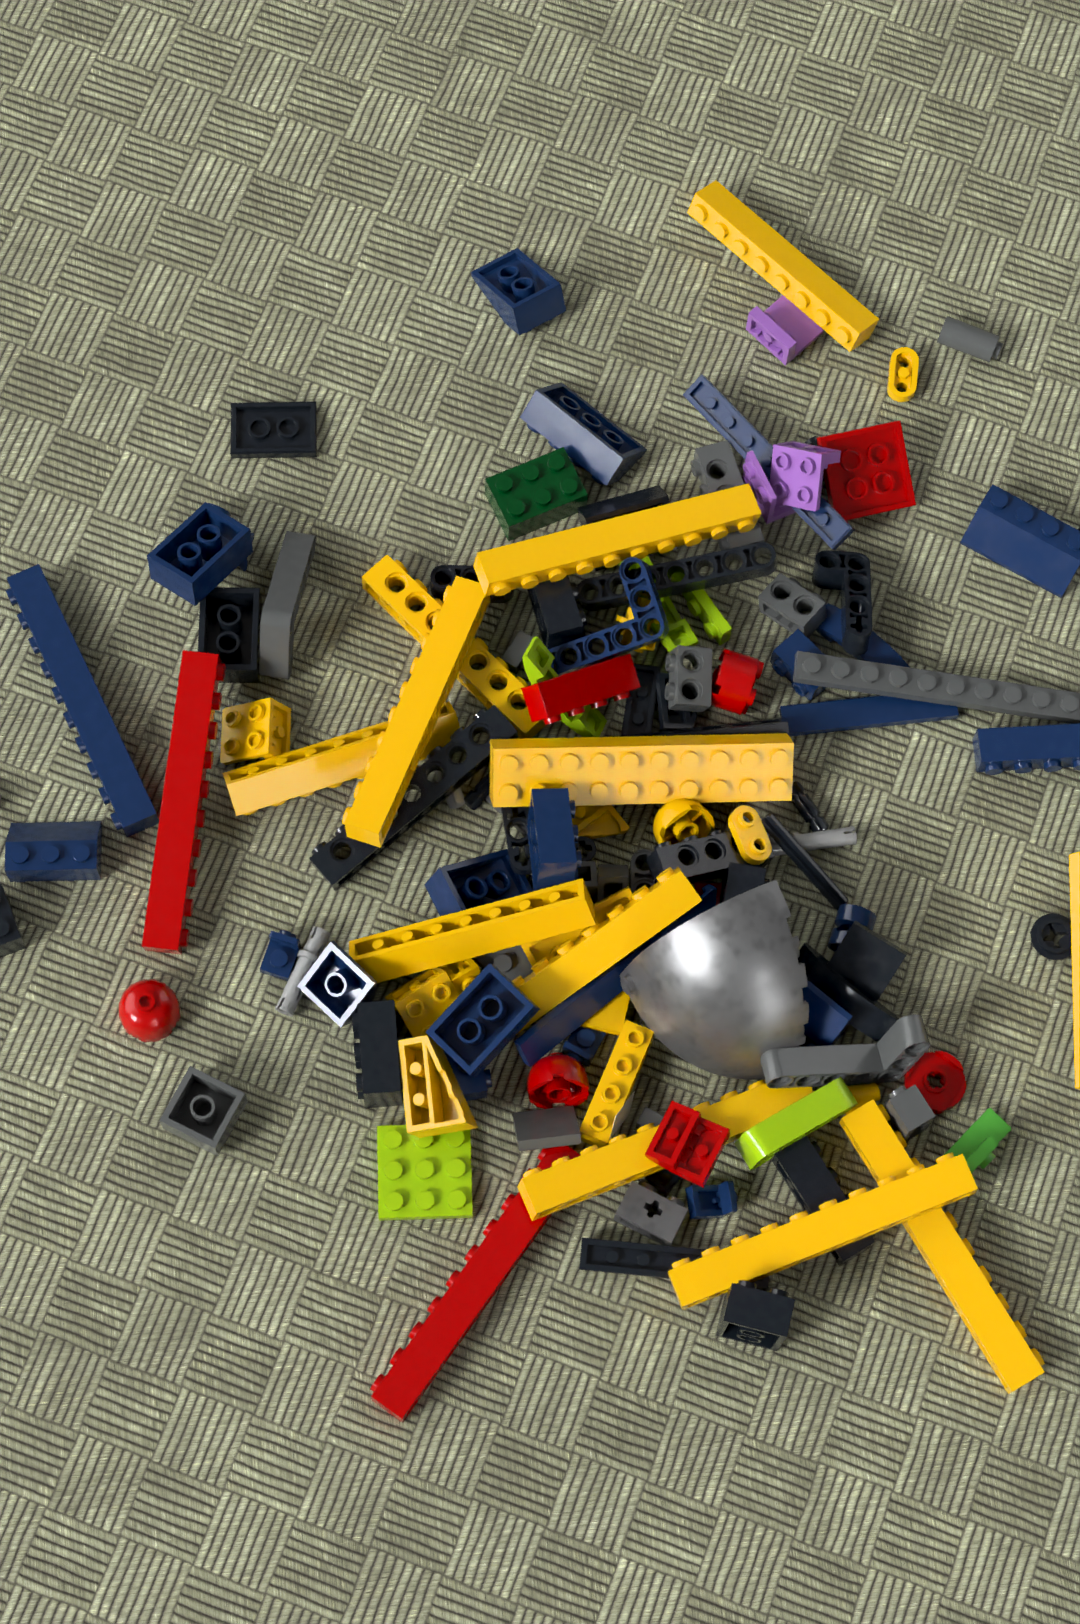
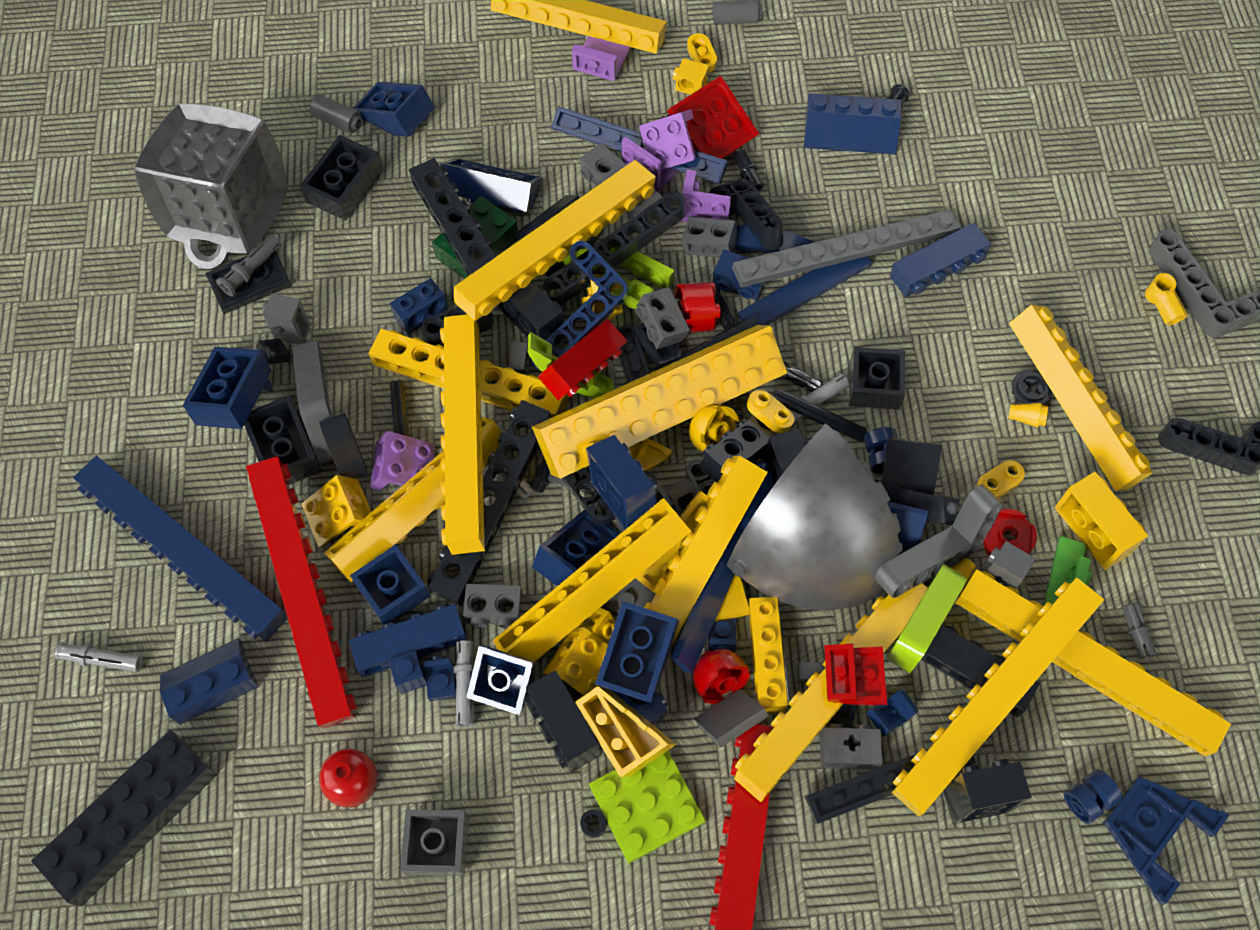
camera: 20 degrees left, 5 degrees down
(251, 934) = (407, 672): none -> dark blue brick
(264, 527) = (274, 351): none -> black tile
(266, 901) = (420, 633): none -> dark blue brick
(269, 421) = (242, 271): none -> dark grey pin
(273, 838) = (390, 585): none -> dark blue brick
(282, 307) = (212, 180): none -> flat silver piece
(290, 671) = (343, 446): none -> black beam
(293, 499) = (286, 318): none -> dark grey brick
(342, 707) = (398, 459): none -> medium lavender bracket
(360, 671) = (399, 409): none -> black axle
(372, 899) = (494, 597): none -> dark grey brick
(372, 1166) = (601, 820): none -> black bush
(424, 355) = (342, 177): none -> black brick
(439, 545) = (418, 305): none -> dark blue brick
(452, 271) = (336, 114): none -> dark grey brick
(512, 403) = (447, 209): none -> black brick
(764, 693) = (726, 318): none -> black axle
(794, 563) = (701, 203): none -> medium lavender bracket
(873, 400) = (690, 76): none -> yellow brick
(876, 1371) = (1092, 796): none -> dark blue wheel
(879, 545) = (747, 169): none -> black axle
(887, 849) = (877, 378): none -> black brick
(909, 1423) = (1146, 823): none -> dark blue wing
(962, 1020) = (1002, 478): none -> yellow plate
(1013, 1240) = (1138, 630): none -> dark grey axle
(1034, 964) = (1031, 414): none -> yellow cone
(1036, 1110) = (1100, 520): none -> yellow brick

